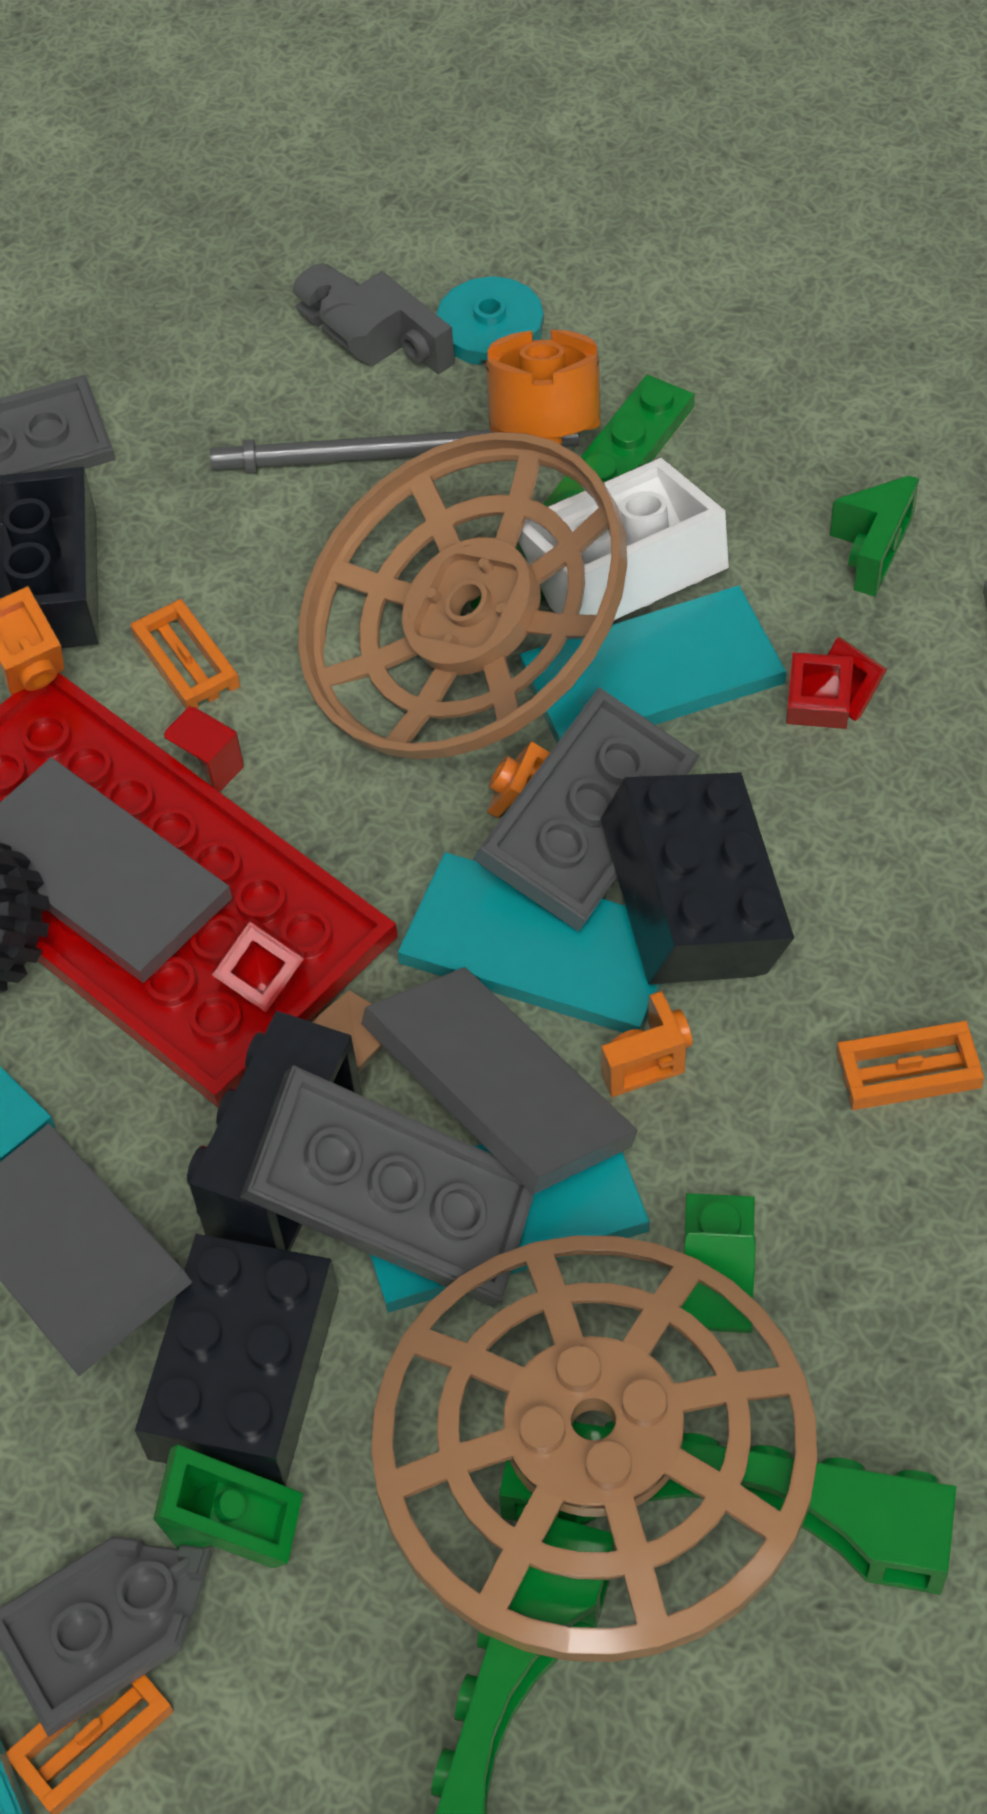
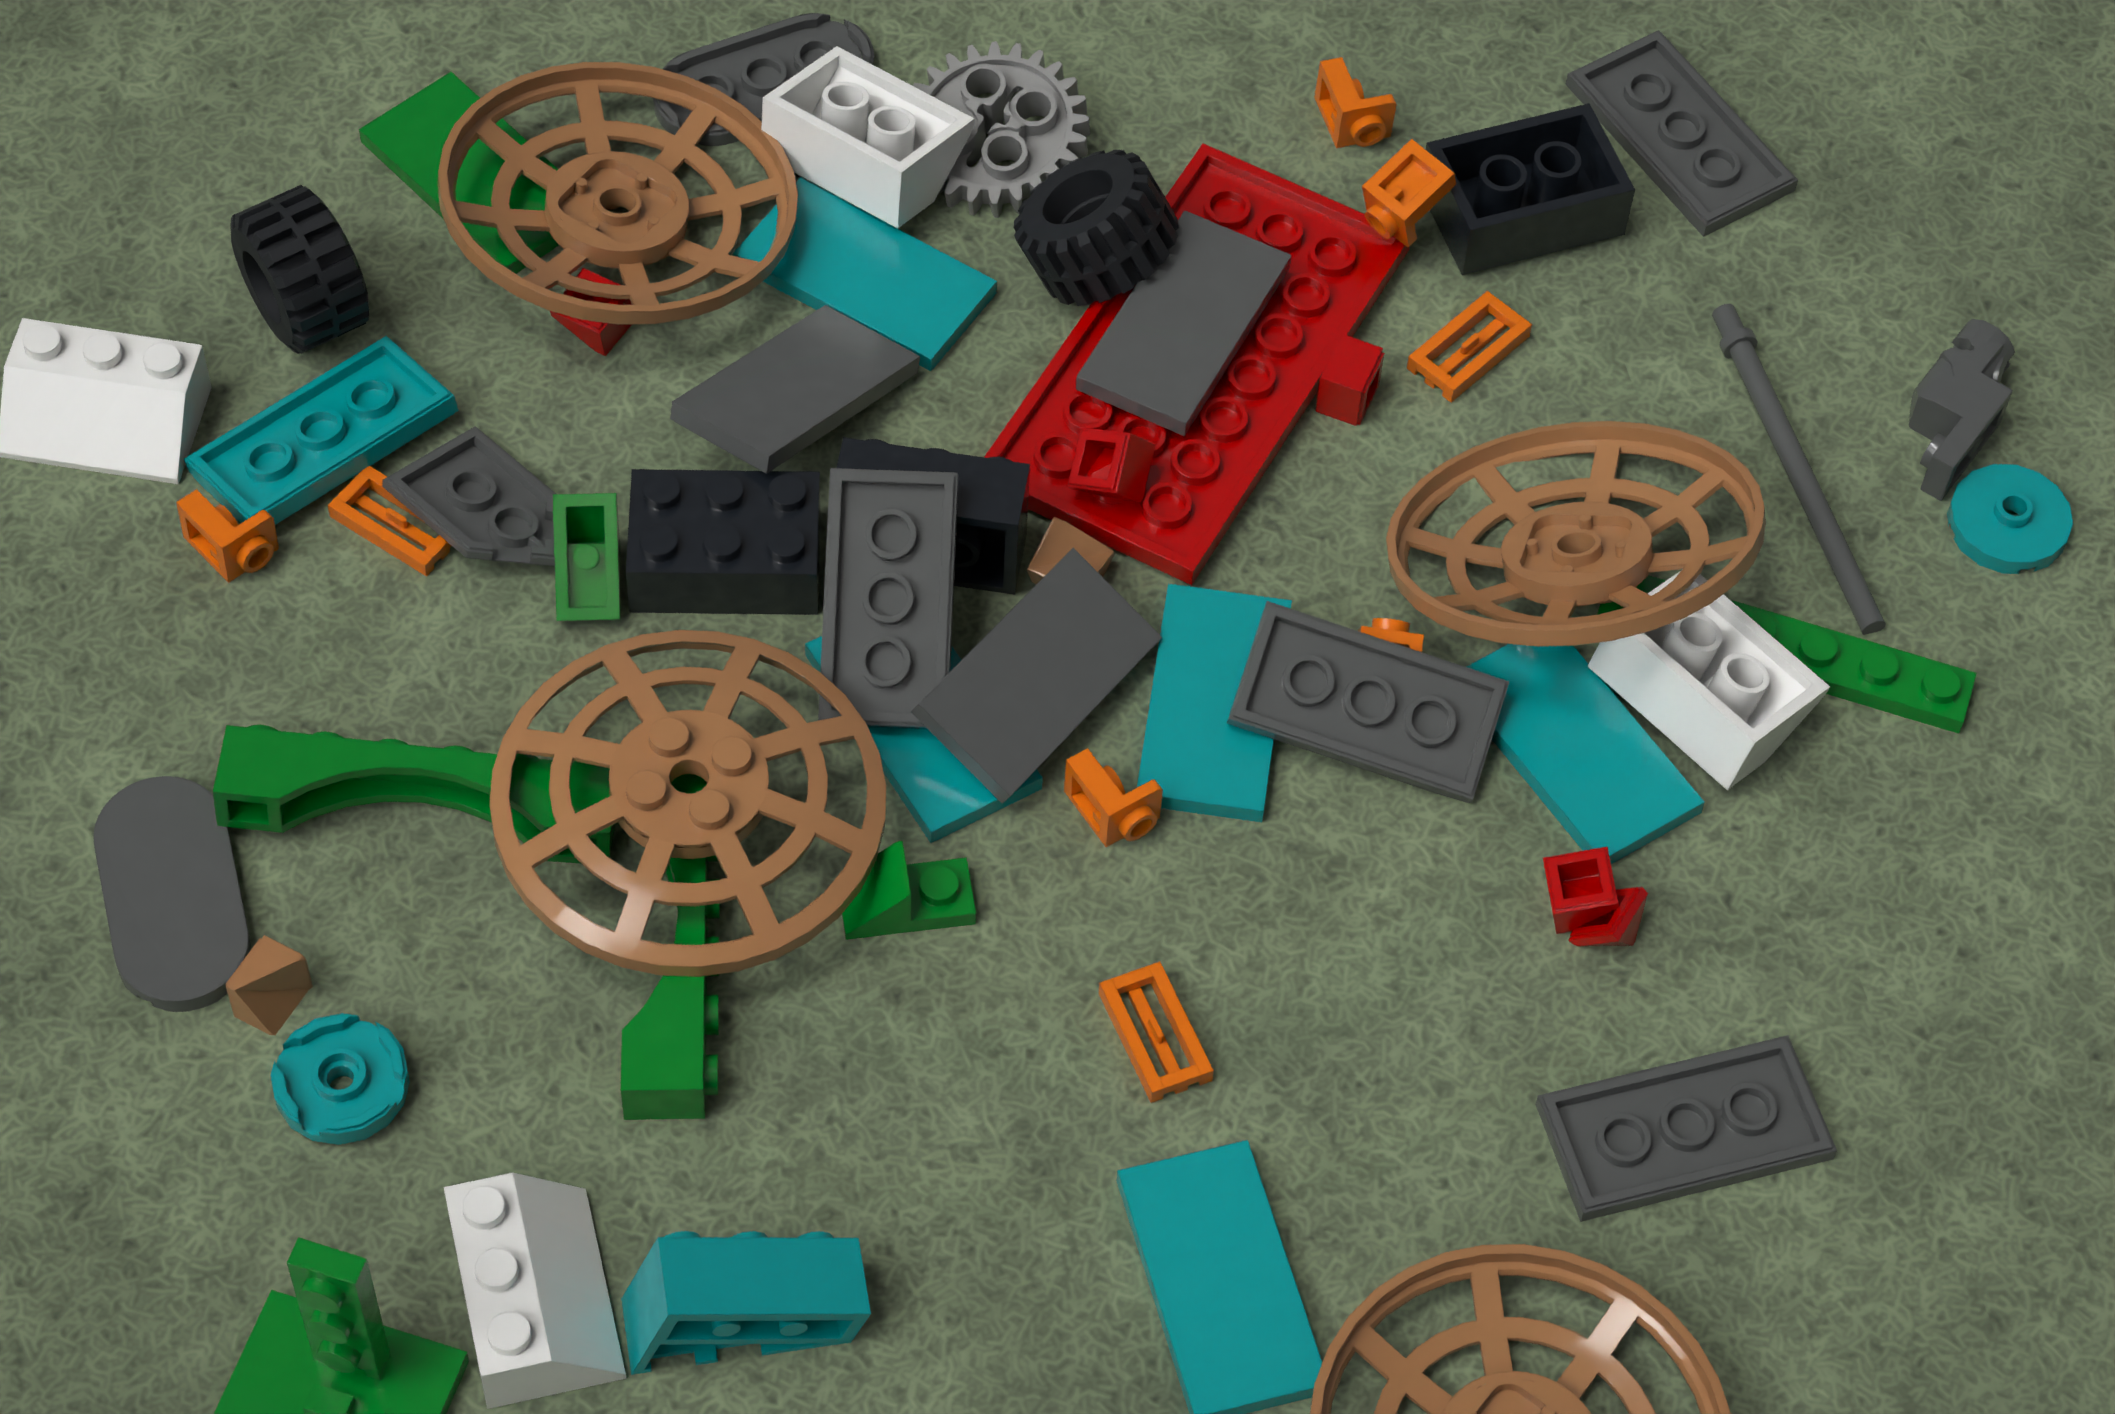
camera: 70 degrees right, 0 degrees up
(543, 384) = (1894, 564): orange brick -> none
(695, 877) = (1298, 796): black brick -> none
(876, 526) = (1830, 925): green slope -> none

